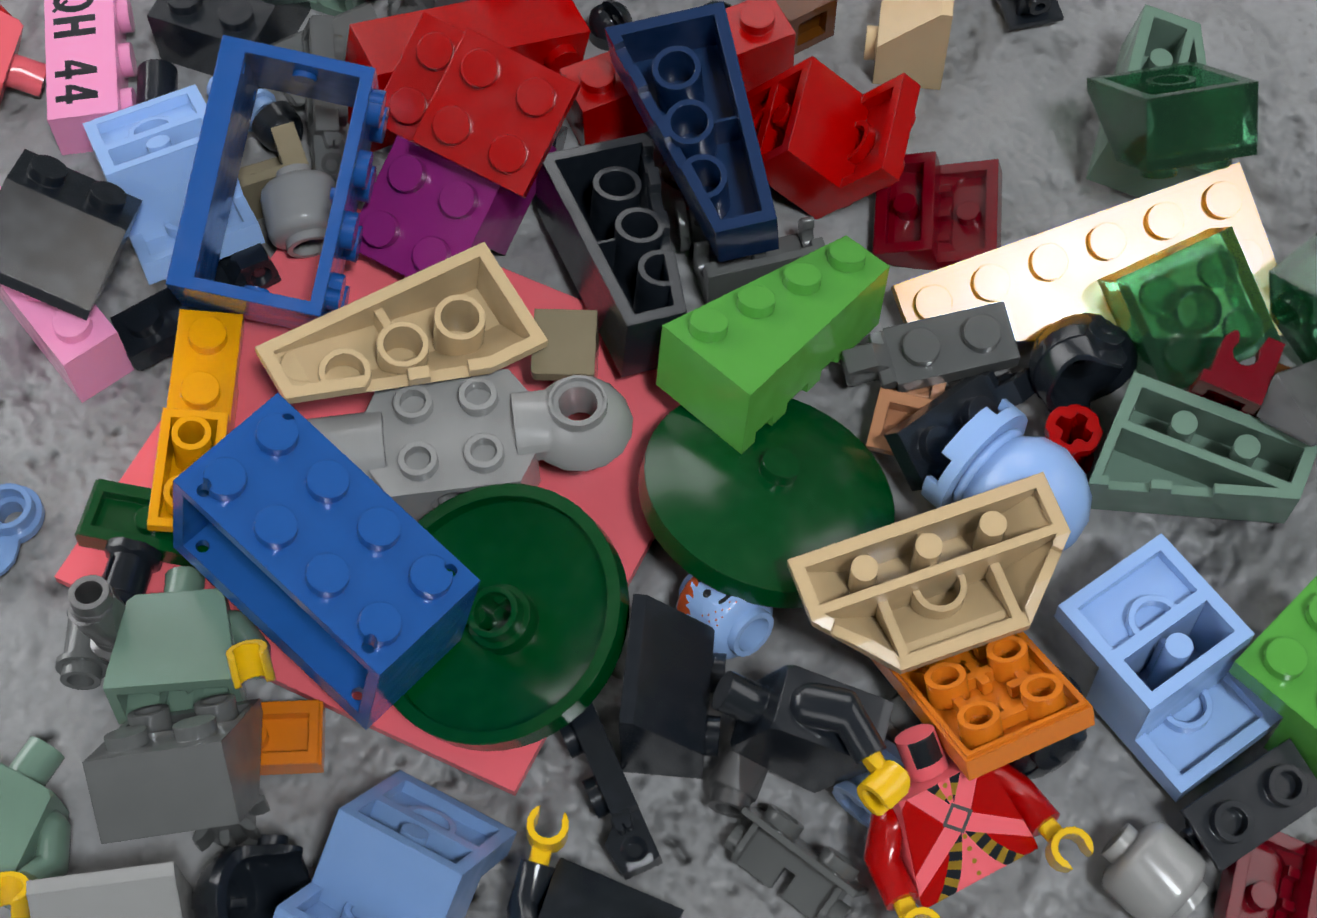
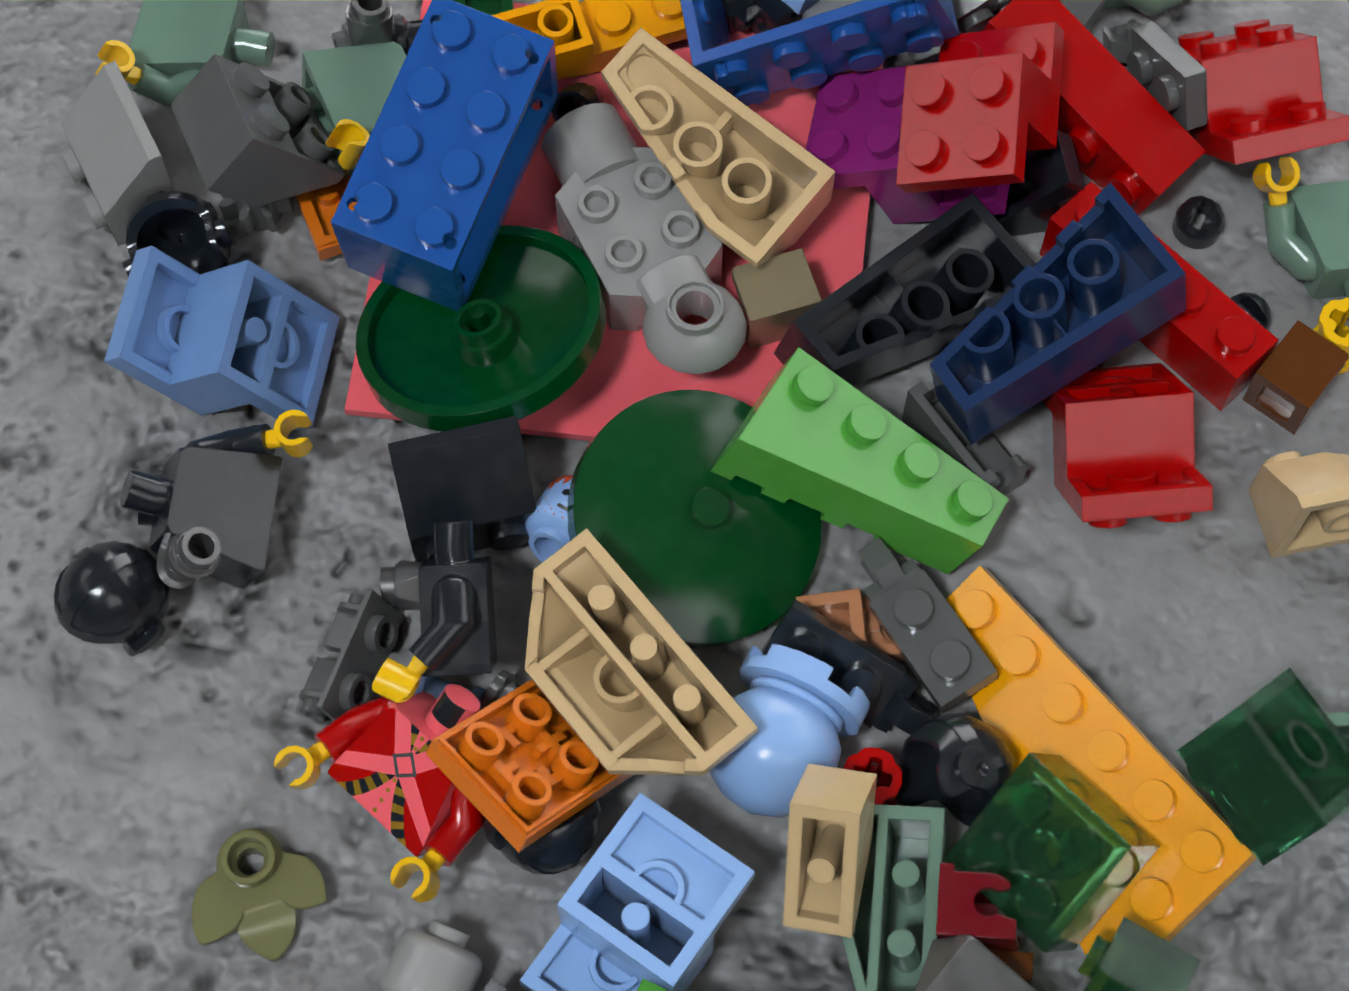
camera: 70 degrees right, 5 degrees up
(609, 792) = (357, 496): black hinge -> none
(938, 213) = (1106, 593): dark red slope -> none
(1154, 465) = (828, 849): none -> tan slope

